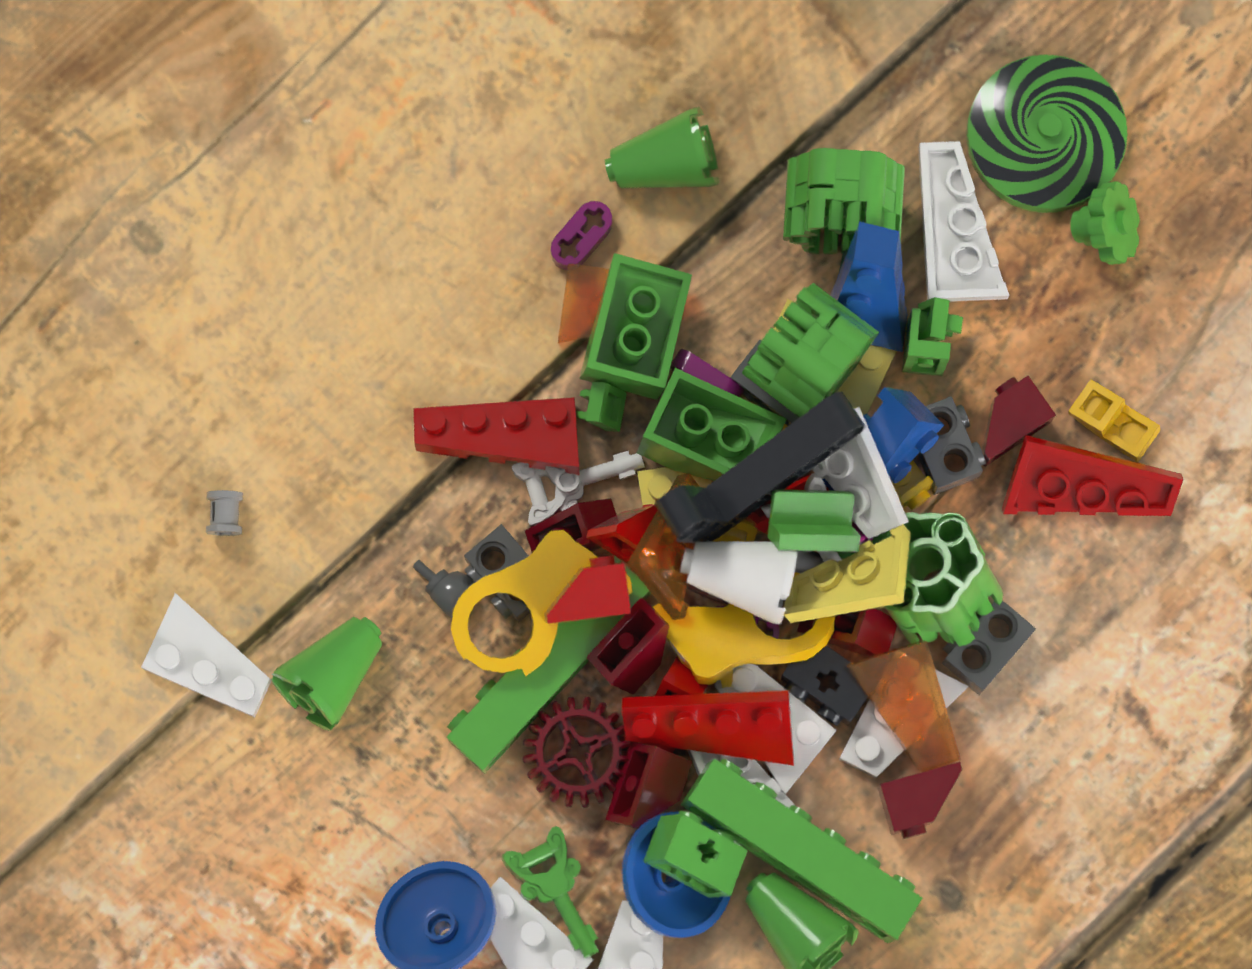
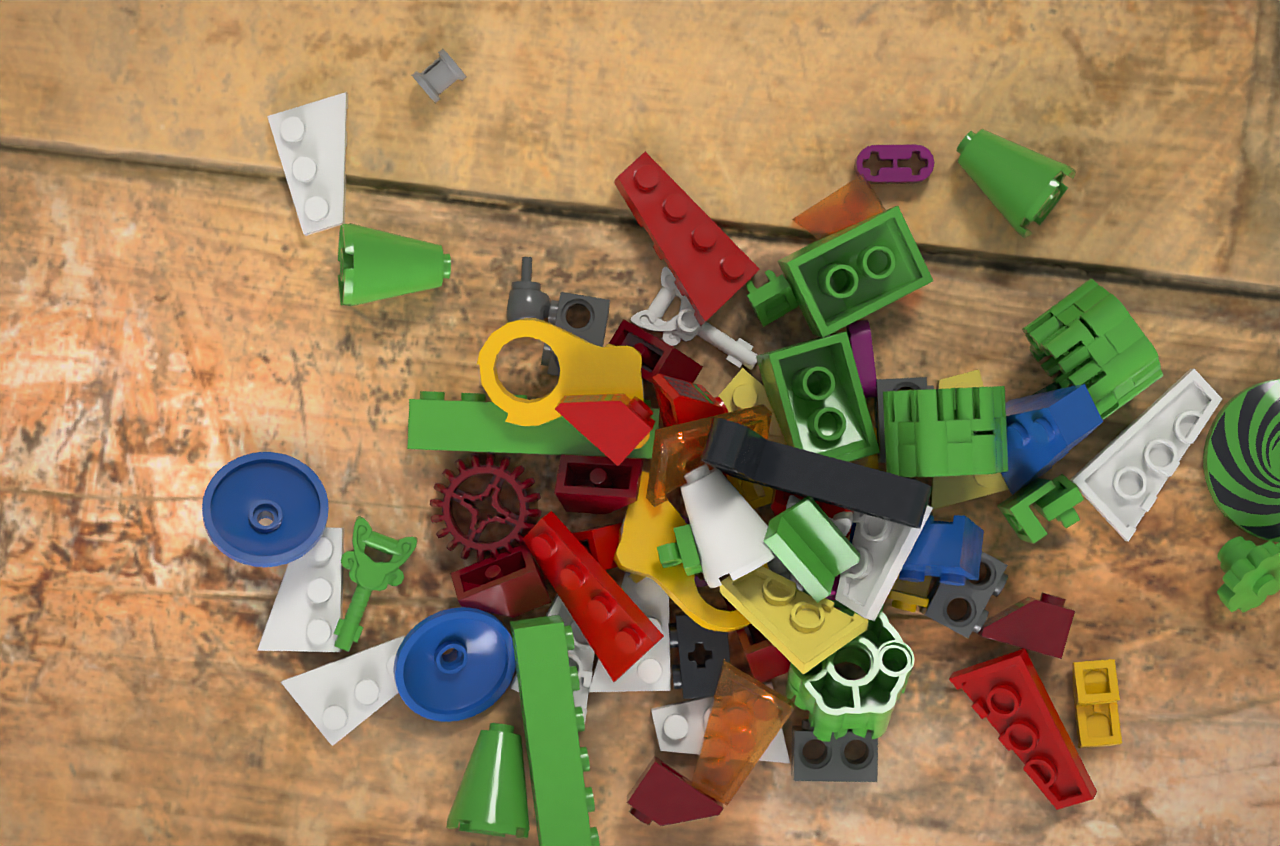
camera: 50 degrees right, 10 degrees up
(695, 854) = (479, 667): bright green brick -> none
(736, 623) = (681, 552): none -> bright green tile

